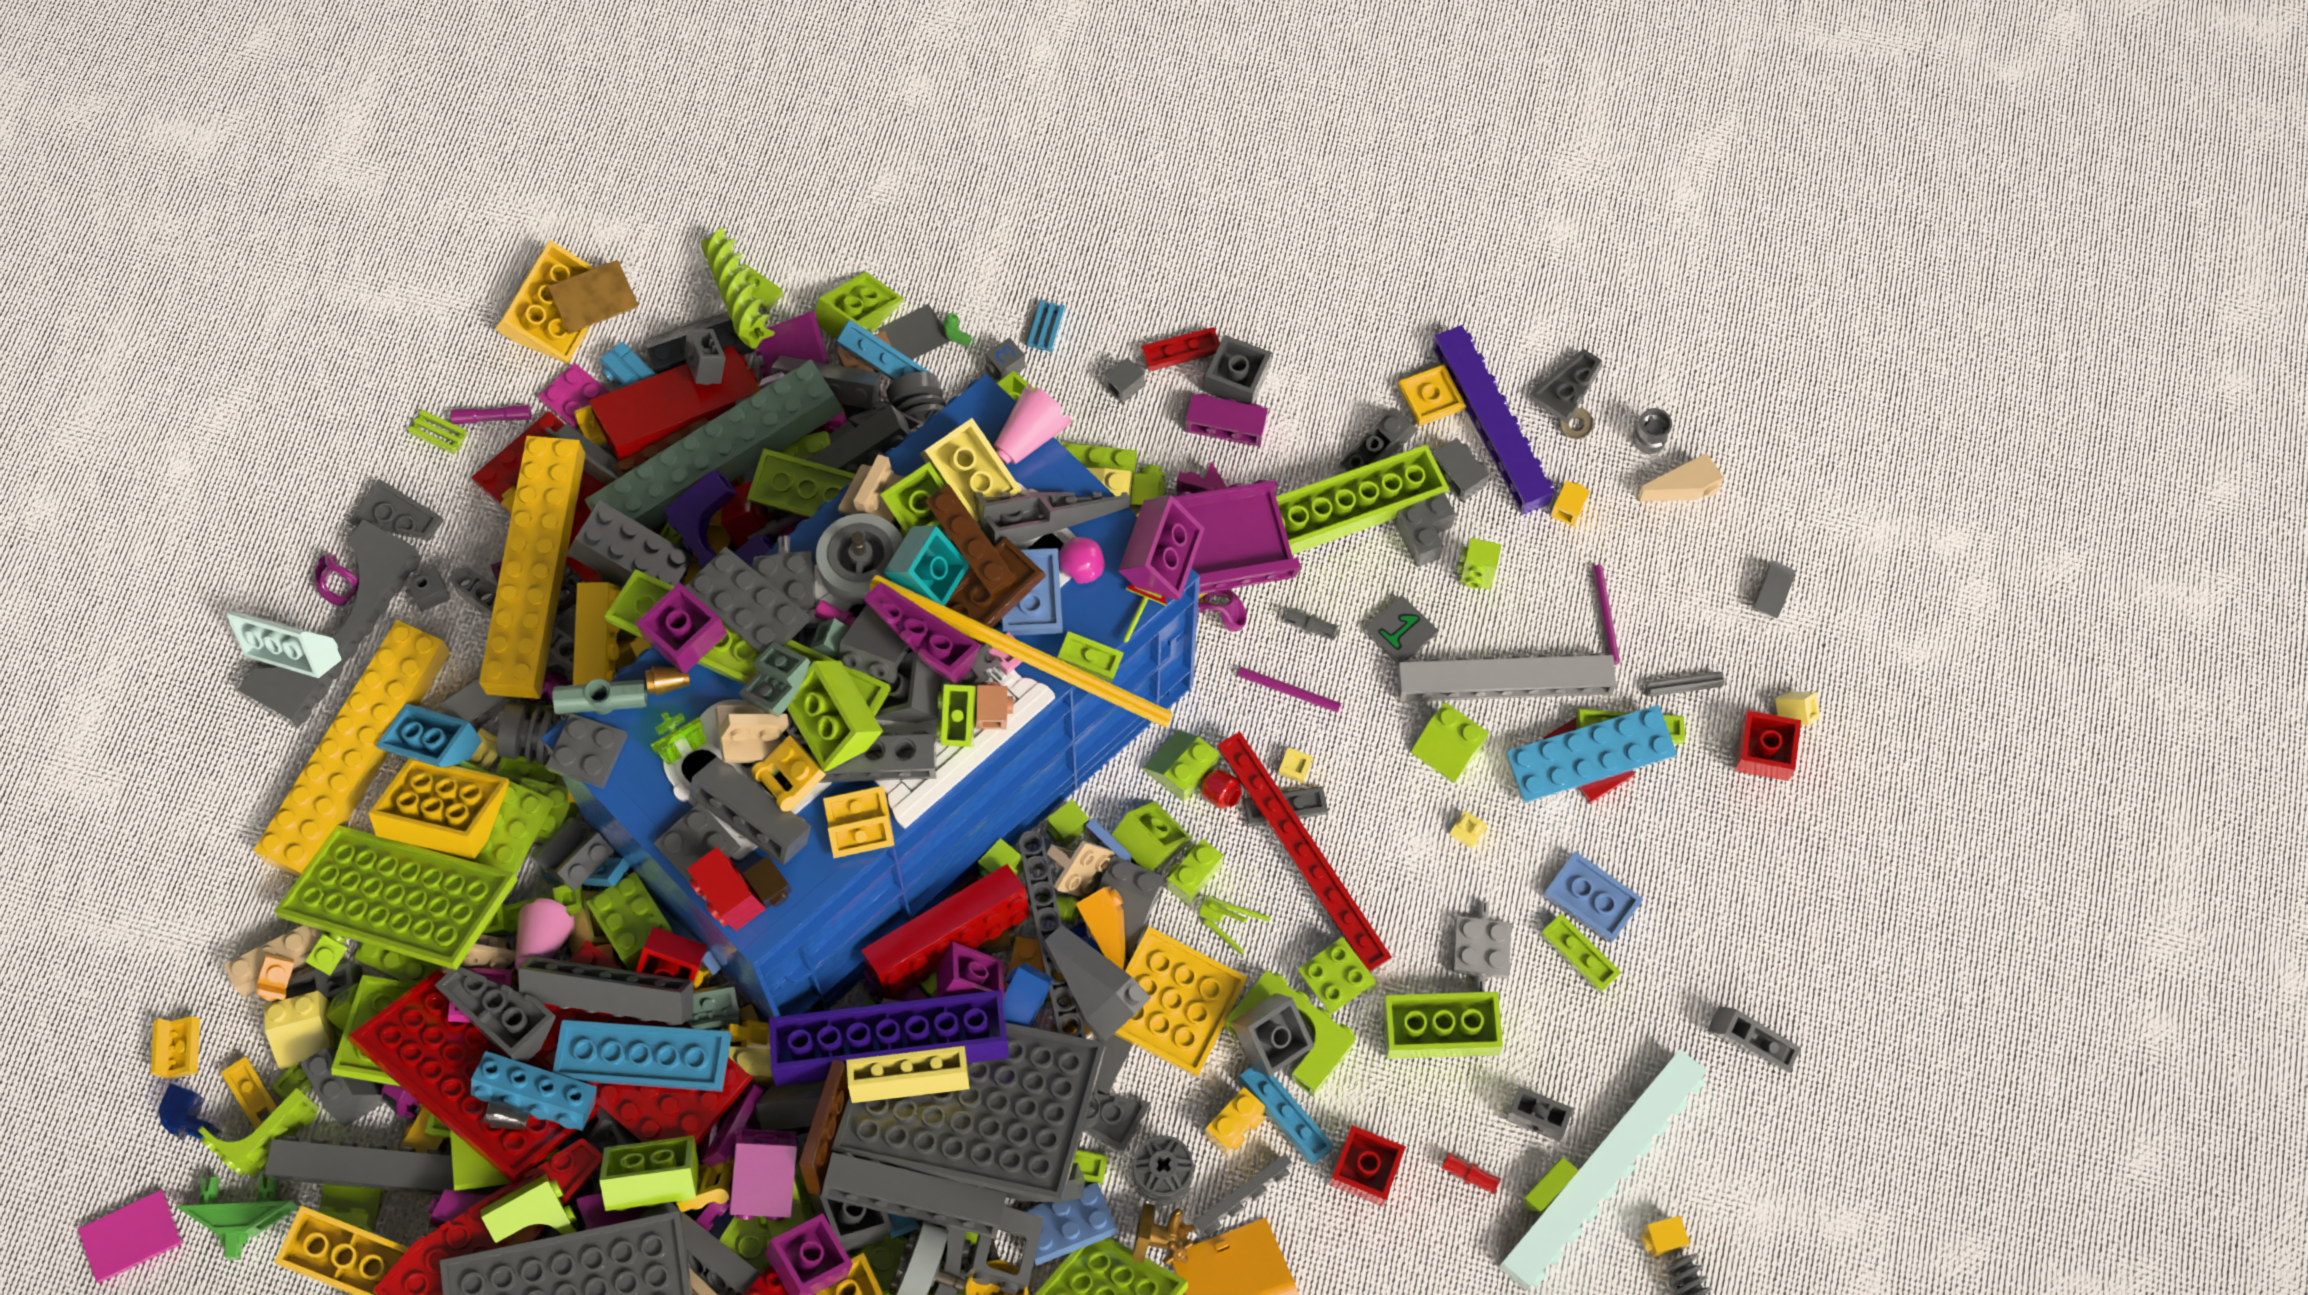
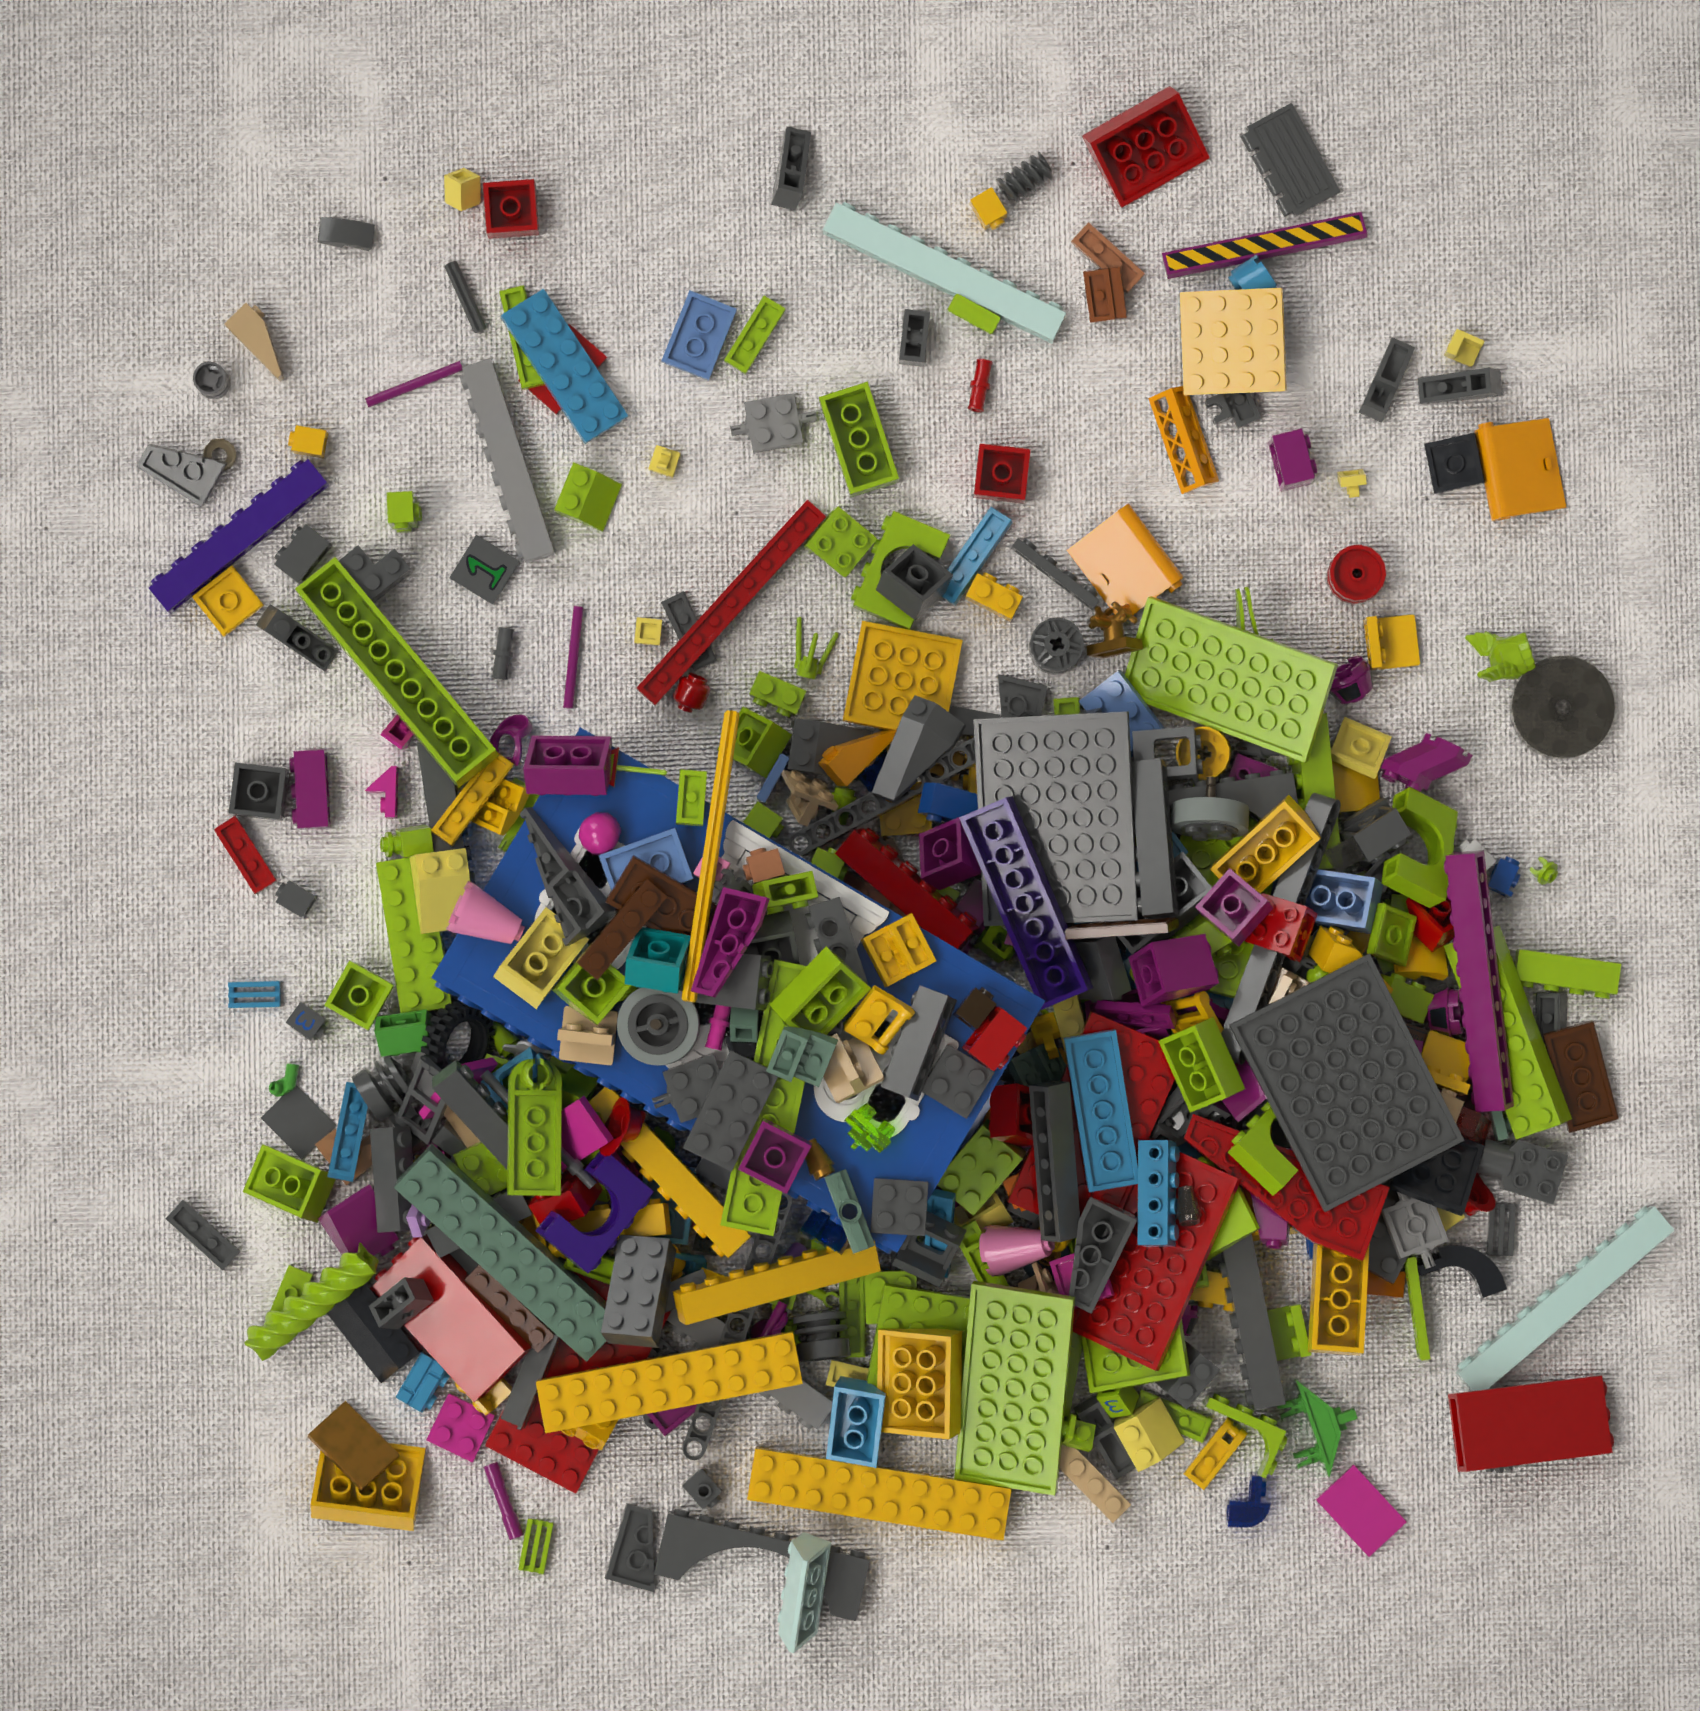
camera: 105 degrees left, 20 degrees up
(175, 1047) = (1193, 1538): yellow bracket -> none
(274, 977) = (1113, 1472): light orange bracket -> none
(325, 566) = (708, 1592): magenta piece -> none
(836, 227) = (203, 1234): none -> dark grey plate
(907, 1074) = (1056, 874): light yellow brick -> none
(1182, 763) = (675, 735): lime slope -> none
(1241, 537) = (459, 739): magenta panel -> none

